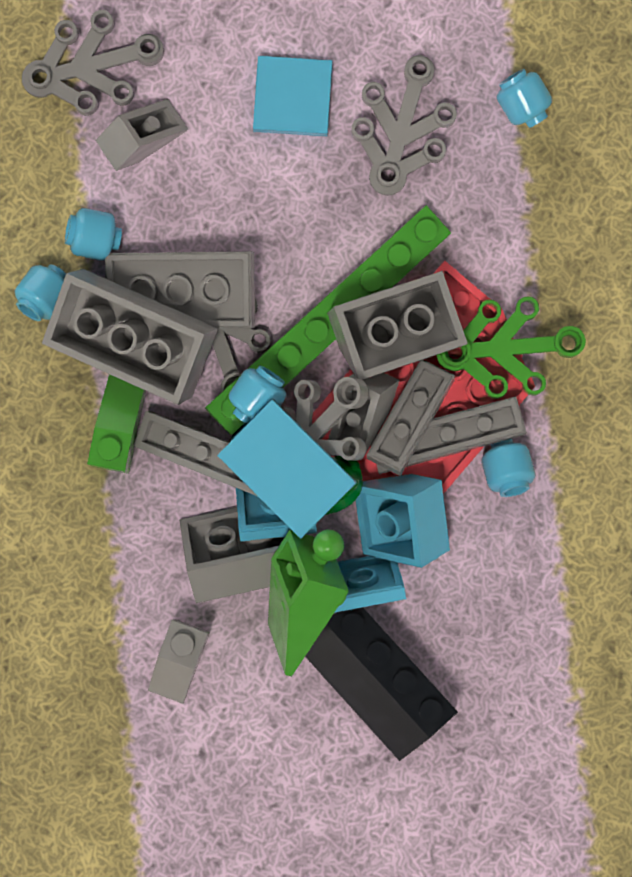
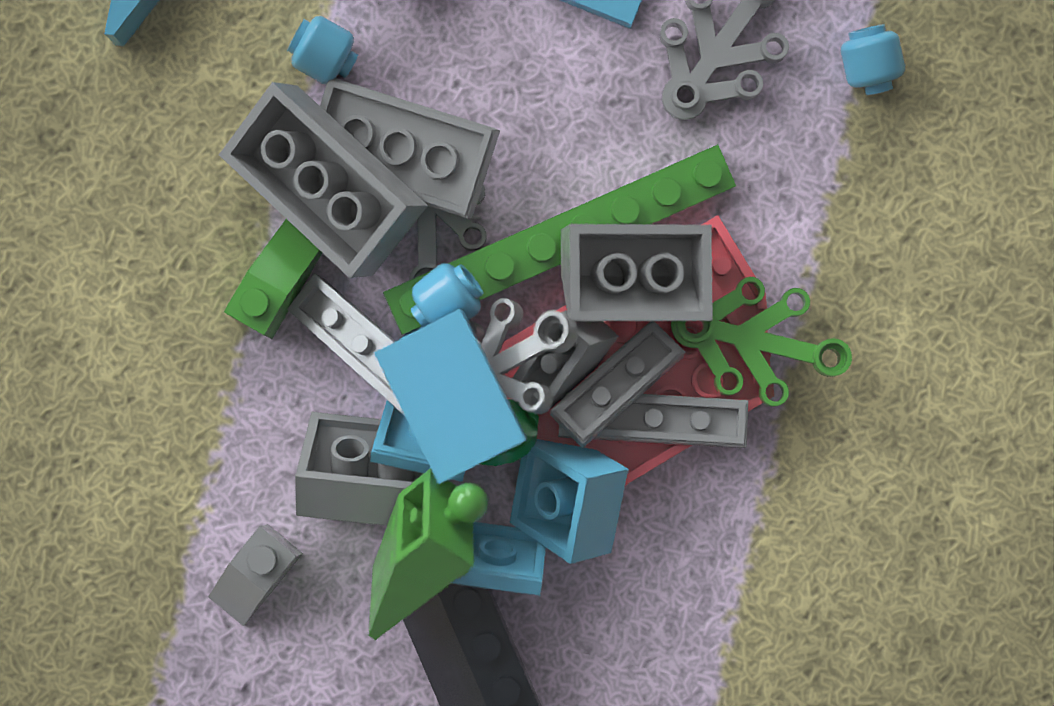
camera: 15 degrees right, 0 degrees up
(39, 291) = (236, 94): medium azure head -> none
(508, 468) = (711, 480): medium azure head -> none

